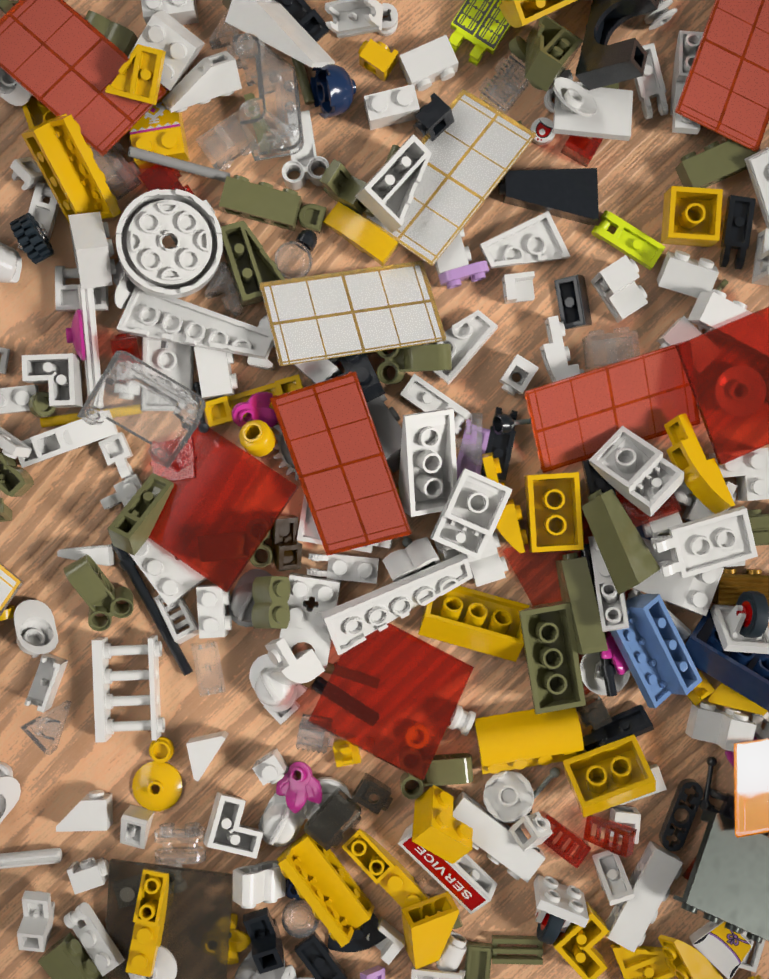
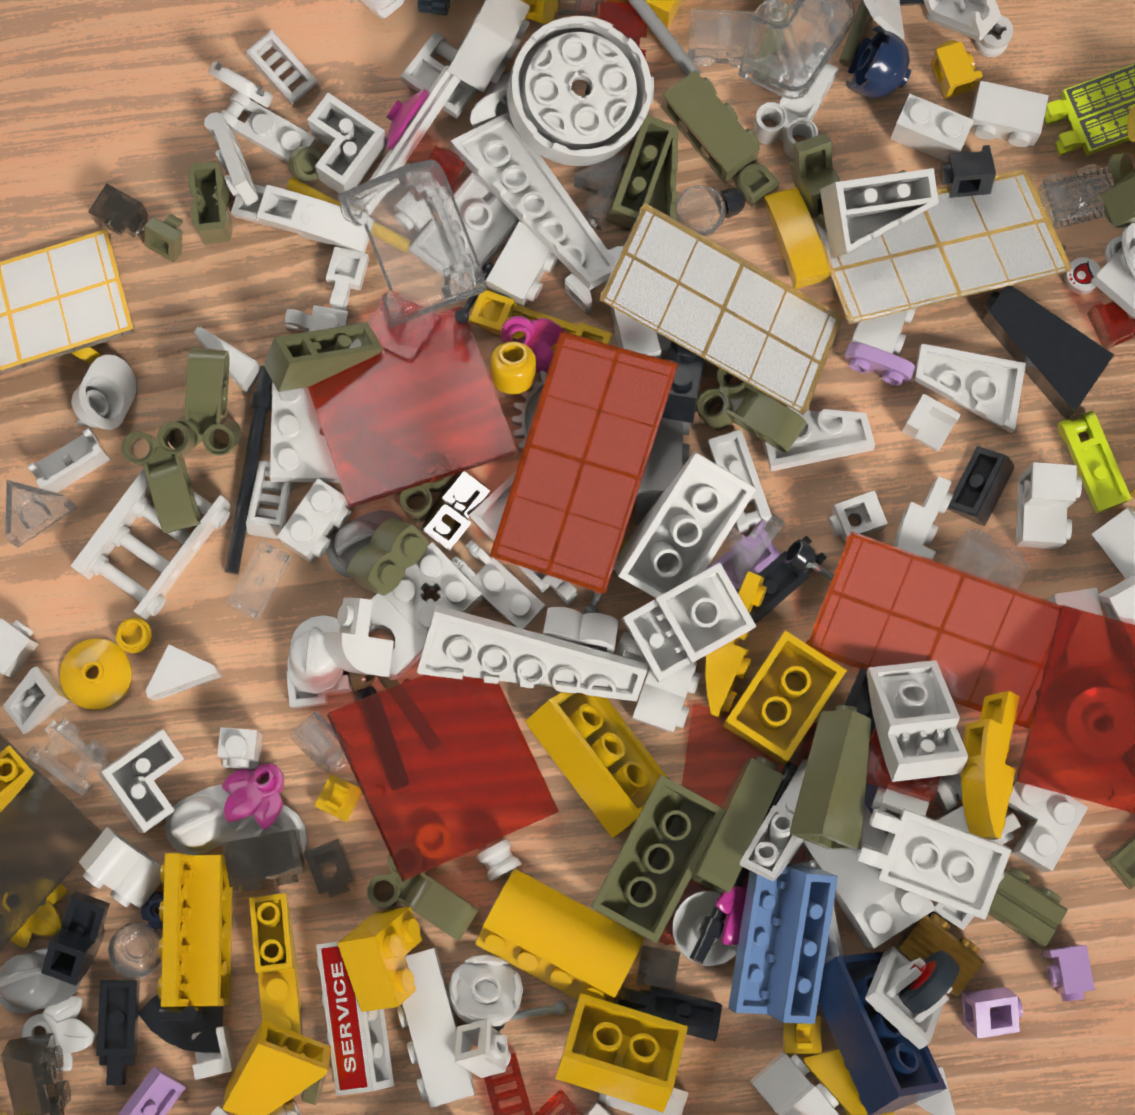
camera: 35 degrees right, 10 degrees down
(109, 652) = (167, 476): none -> olive piece

